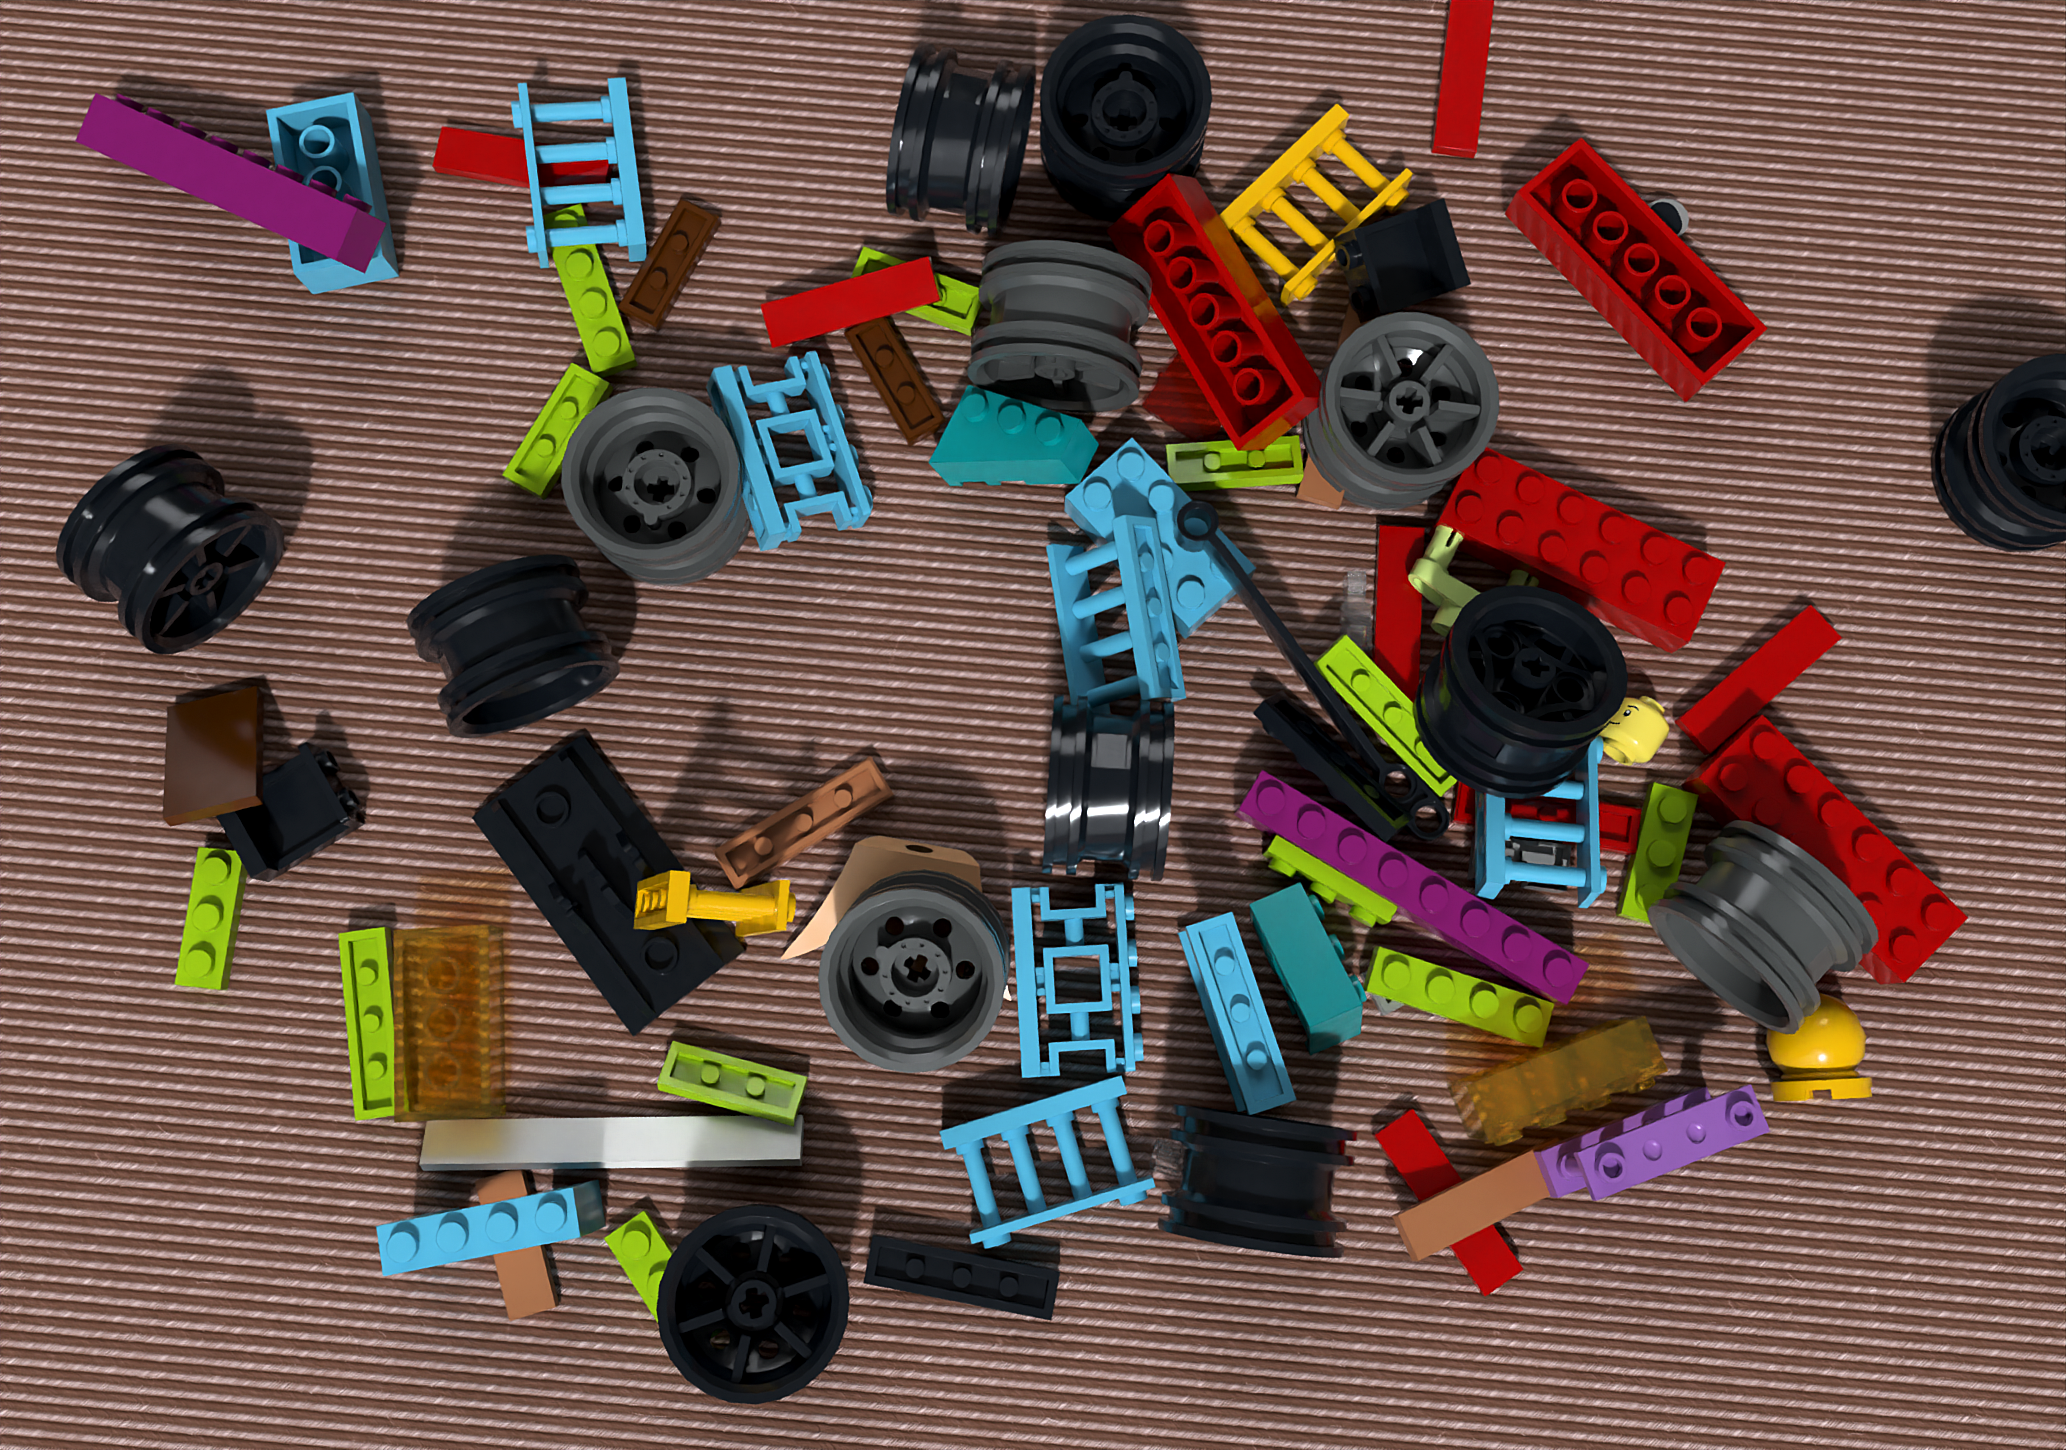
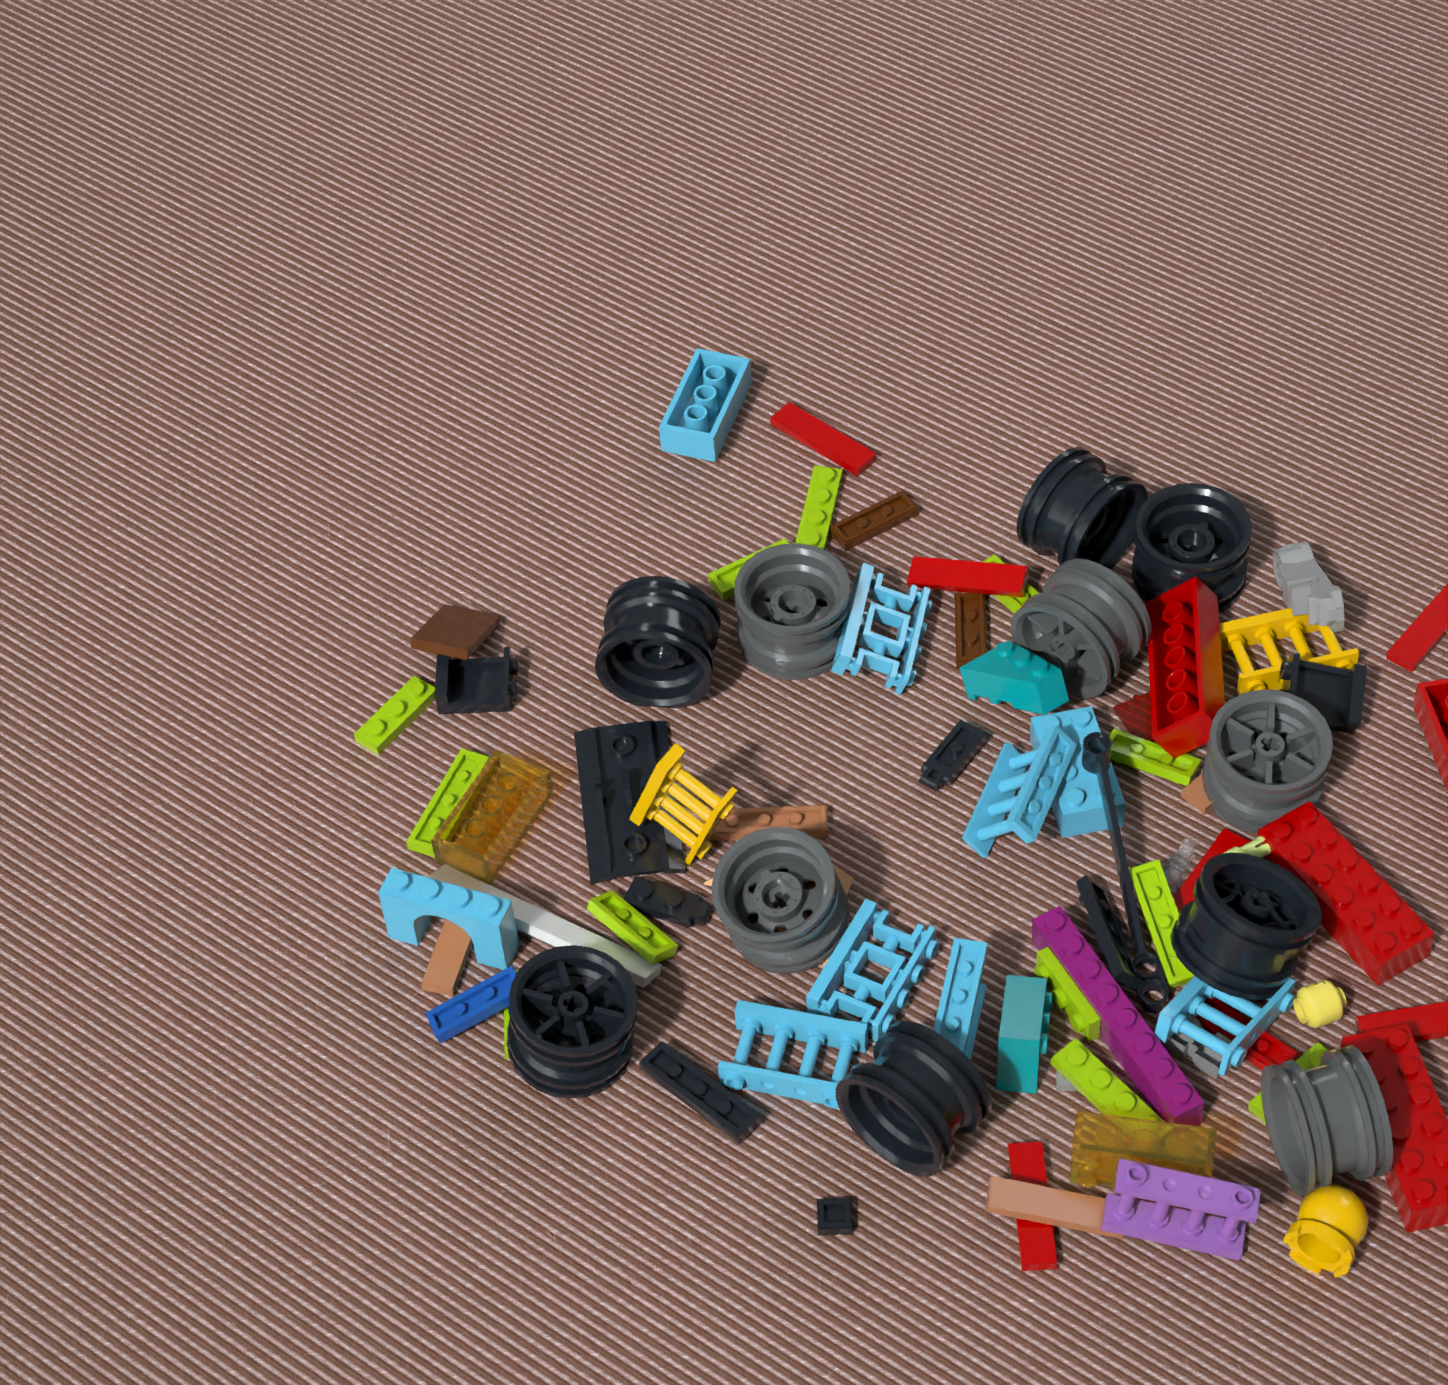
camera: 35 degrees right, 30 degrees down
(169, 548) = (505, 517): black wheel -> none
(233, 182) = (656, 371): magenta brick -> none
(604, 1320) = (471, 1005): none -> blue plate
(616, 150) = (871, 470): medium azure fence -> none
(751, 1015) = (667, 903): none -> black hinge
(985, 595) = (951, 755): none -> black hinge
(1109, 787) = (955, 860): black wheel -> none
(1224, 1352) = (834, 1216): none -> black tile
(1301, 106) = (1307, 586): none -> light grey piece

